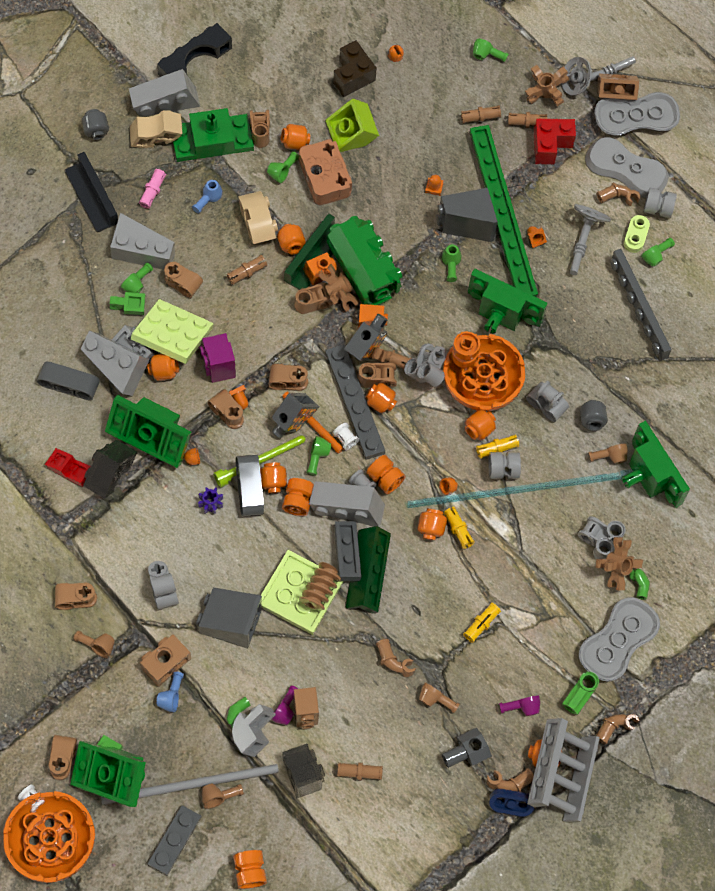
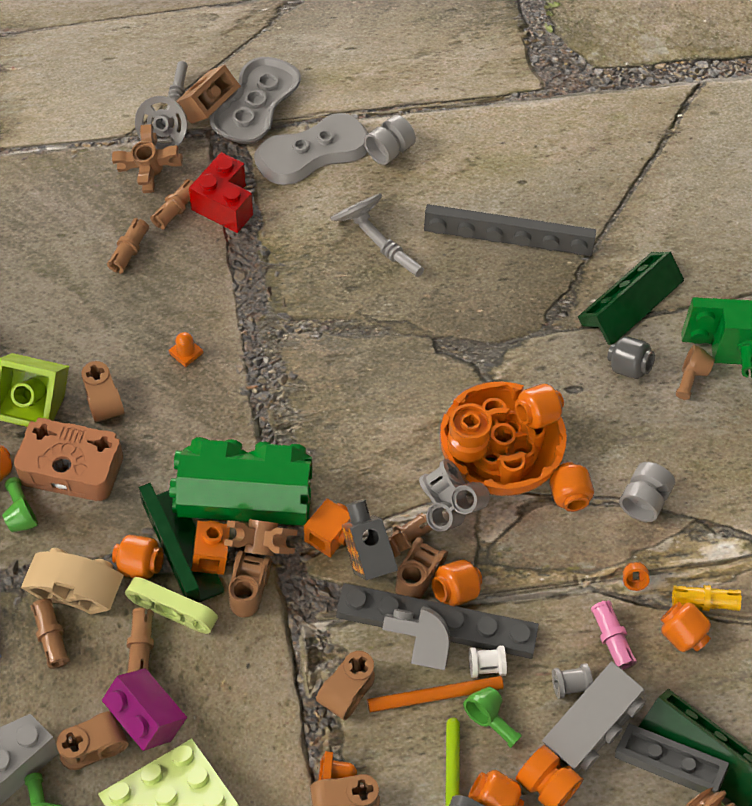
camera: 55 degrees left, 10 degrees down
(211, 291) = (144, 709): none -> magenta brick
(218, 358) = (256, 761): magenta brick -> none
(224, 226) = (50, 633): none -> medium nougat pin
(276, 271) = (171, 605): none -> yellowish green beam
(293, 413) = (415, 697): dark grey torso -> none
(339, 398) = (431, 634): none -> light grey brick
(375, 161) = (101, 392): none -> medium nougat piece
(383, 472) = (580, 641): orange wheel -> none
(403, 491) = (613, 635): none -> bright pink pin
(451, 261) = (305, 390): bright green bar -> none
(468, 215) = (266, 329): dark grey slope -> none
(483, 48) = (41, 191): bright green bar -> none
(497, 446) = (610, 487): yellow pin -> none
(504, 303) = (416, 361): green brick -> none
(507, 223) = (283, 297): green plate -> none
(510, 376) = (539, 406): none -> orange head
(517, 489) = (725, 372): clear light blue piece -> none
(536, 236) = (341, 282): orange piece -> none
(548, 400) = (584, 391): light grey piece -> none
(616, 190) = (340, 171): medium nougat piece -> none
(636, 232) = (405, 183): yellowish green plate -> none
(643, 397) = (633, 296): none -> dark green panel
(653, 255) = (450, 184): bright green bar -> none

